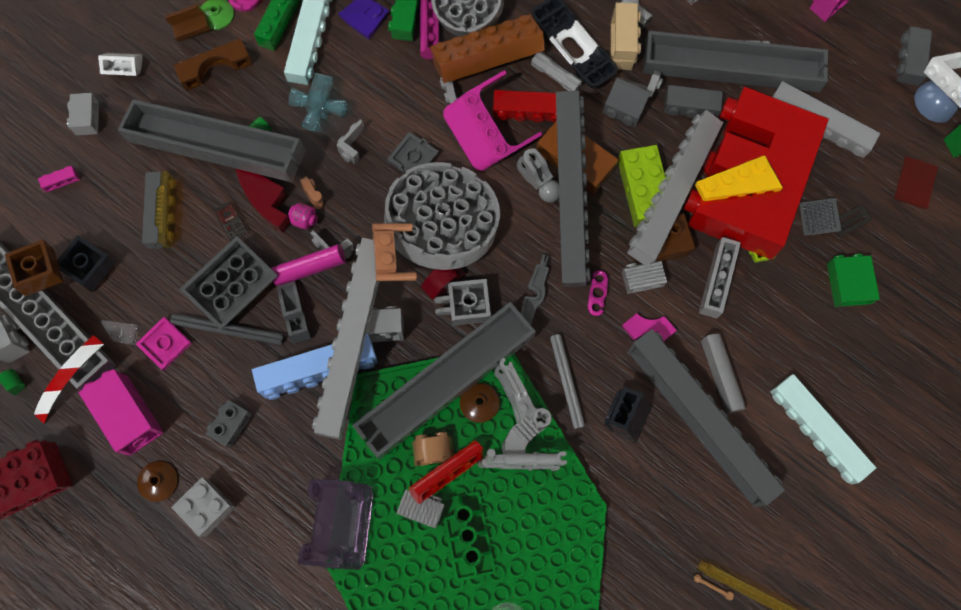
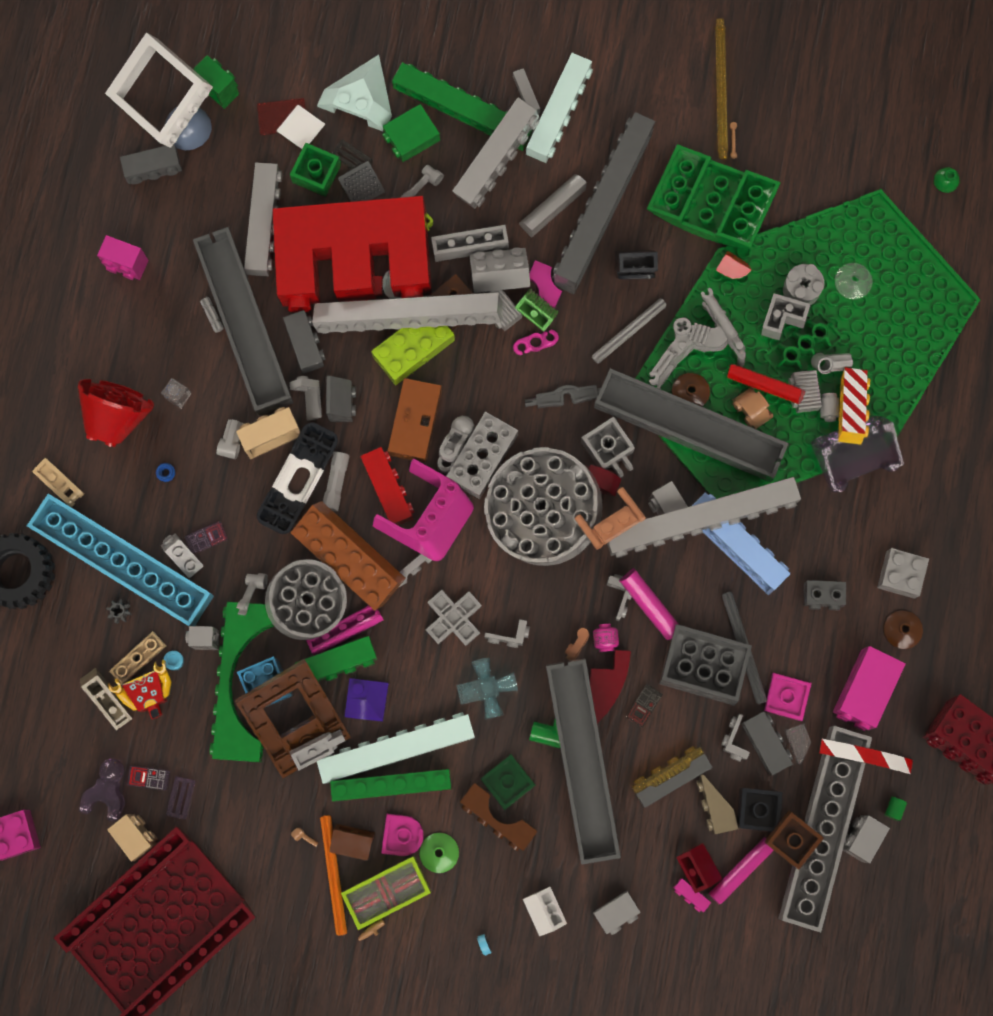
camera: 115 degrees left, 5 degrees up
(47, 219) = (740, 872): none -> dark pink brick
(72, 192) = (699, 868): none -> dark red brick
(107, 234) = (719, 811): none -> dark tan slope
(125, 9) = (484, 945): none -> medium azure tile
(135, 302) = (767, 743): none -> dark grey brick
(147, 271) = (735, 752): none -> light grey bracket
(188, 22) = (468, 867): reddish brown panel -> none
(236, 87) = (507, 782): none -> dark green tile
(293, 312) = (697, 596): dark grey slope -> none
(380, 543) = (853, 406): none -> brick
(391, 108) = (453, 618): none -> light grey plate
(393, 523) = (830, 407): none -> light grey brick
(412, 153) = (492, 571): dark grey plate -> none
(435, 550) = (833, 362): none -> light grey piece
(509, 523) = (783, 311): none -> light grey brick
(519, 183) = (478, 443): none -> light grey brick
(535, 557) = (807, 276): none -> light grey brick
(571, 184) = (458, 402): dark grey piece -> none
(580, 508) = (733, 266): none -> brick
(627, 304) = (536, 310): none -> bright green brick
(660, 528) = (712, 198): none -> green slope
(680, 288) = (499, 270): none -> light grey brick
(744, 179) = (377, 254): yellow wing -> none
(799, 338) = (496, 153): none -> light grey brick
(802, 279) = (430, 175): none -> light grey brick
(851, 180) = (315, 169): none -> green brick
(851, 407) = (525, 89): none -> light grey piece
(861, 339) = (449, 100): none -> green brick
(899, 192) = (300, 127): none -> white sticker
(910, 258) = (360, 94): none -> light aqua wedge

